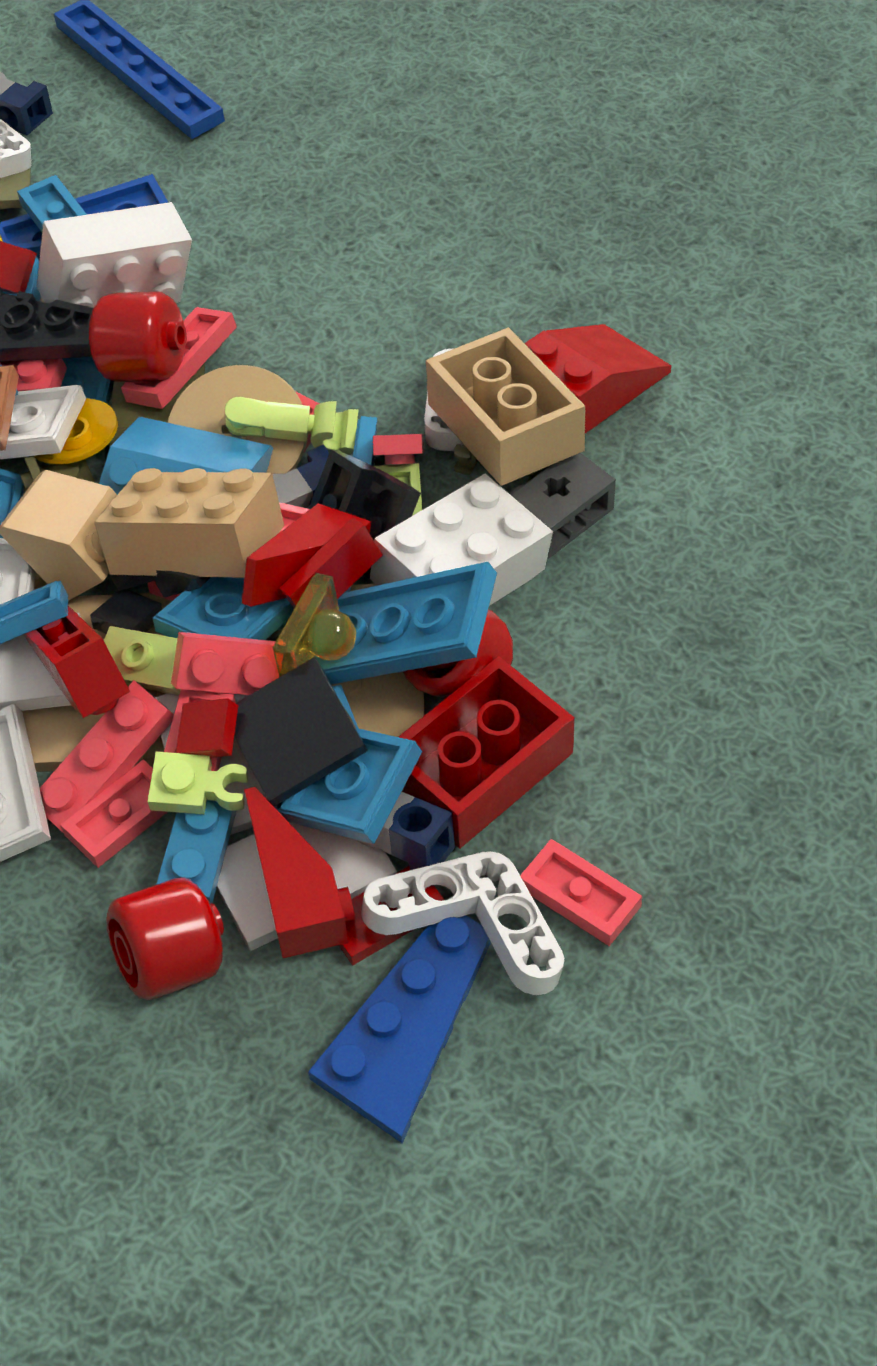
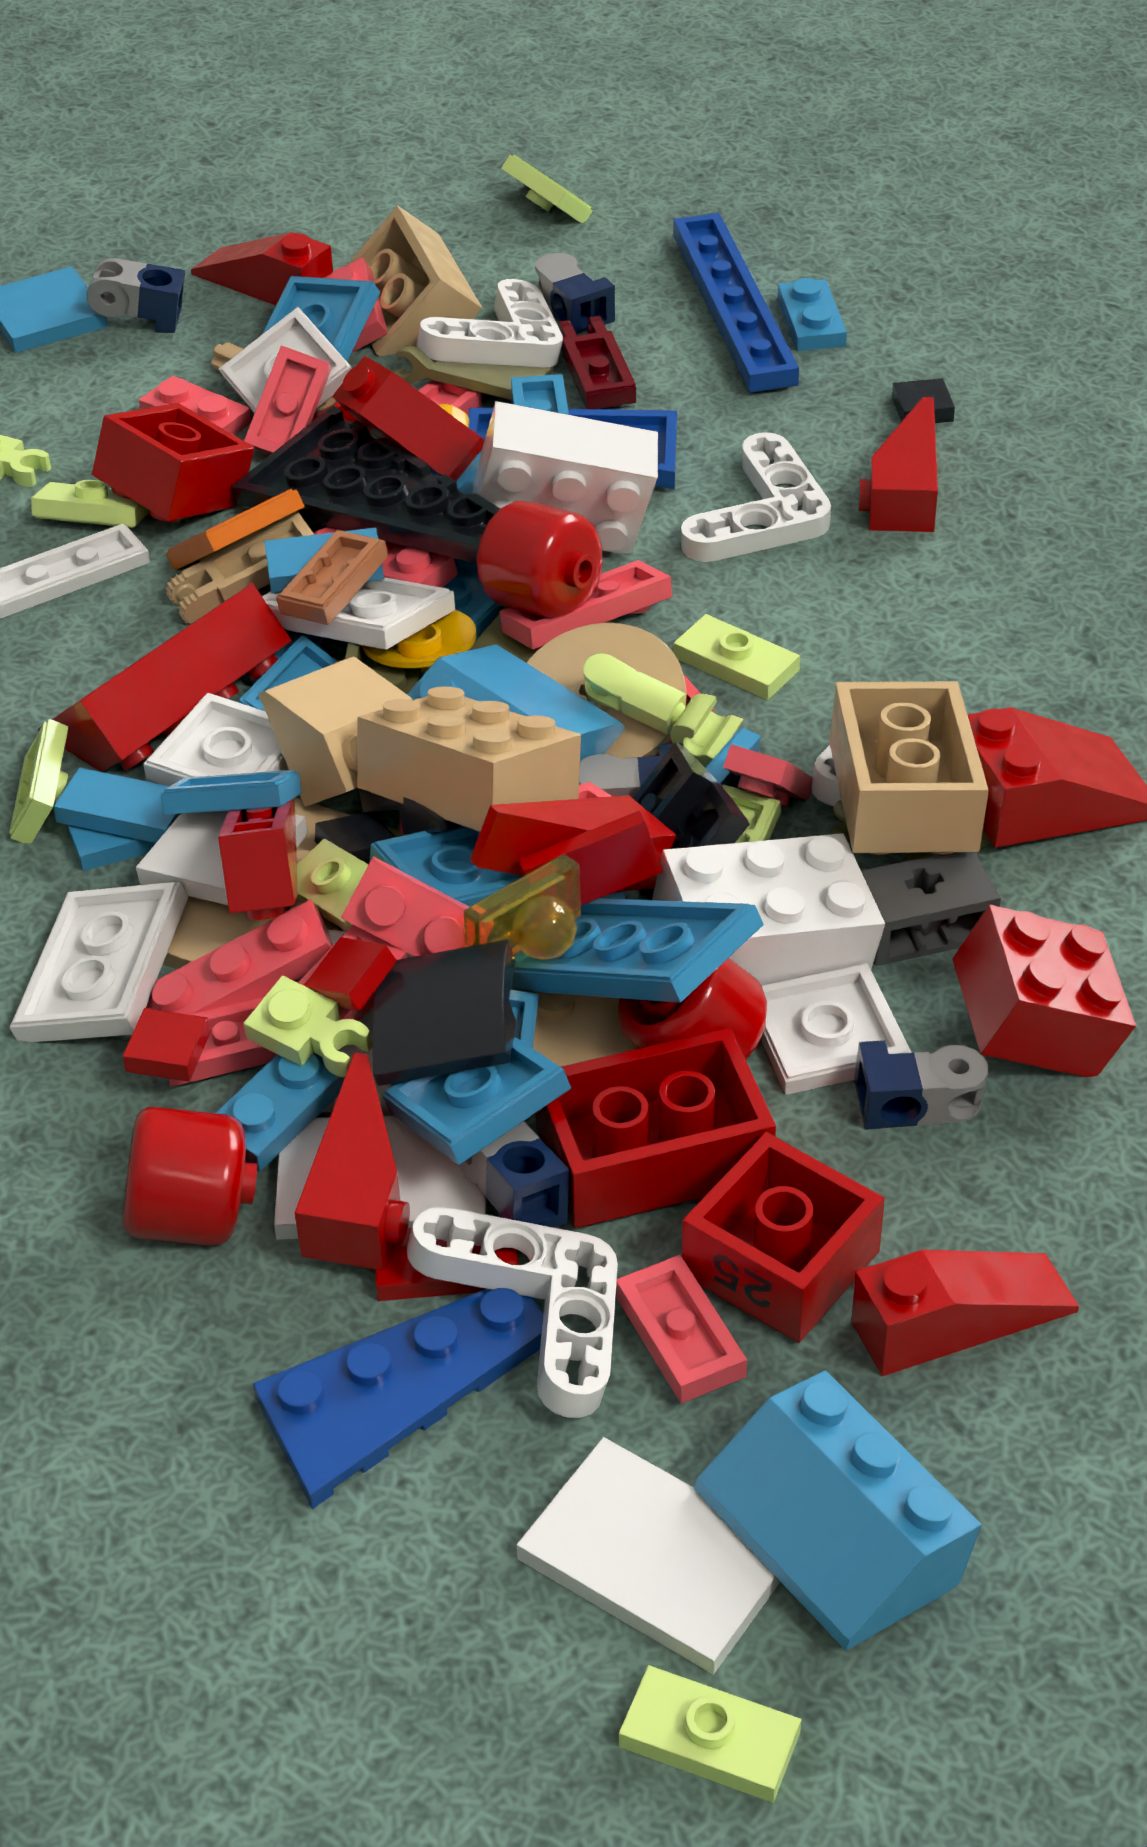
camera: 25 degrees right, 10 degrees down
(66, 155) = (597, 365): none -> dark red hinge
(86, 839) = (166, 1044): none -> red tile
(200, 60) = (811, 314): none -> dark azure plate
(269, 228) = (708, 534): none -> white beam
(310, 357) = (736, 656): none -> yellowish green plate
(323, 105) = (908, 394): none -> black tile
(352, 172) = (904, 476): none -> red slope
(548, 622) = (819, 1023): none -> white tile
(615, 794) = (782, 1236): none -> red brick
(631, 643) = (918, 1085): none -> leg
(659, 1063) = (650, 1555): none -> white tile
(682, 539) = (1042, 992): none -> red brick
(747, 793) = (952, 1301): none -> red slope
(767, 977) = (839, 1510): none -> dark azure slope
(769, 1174) = (710, 1733): none -> yellowish green plate

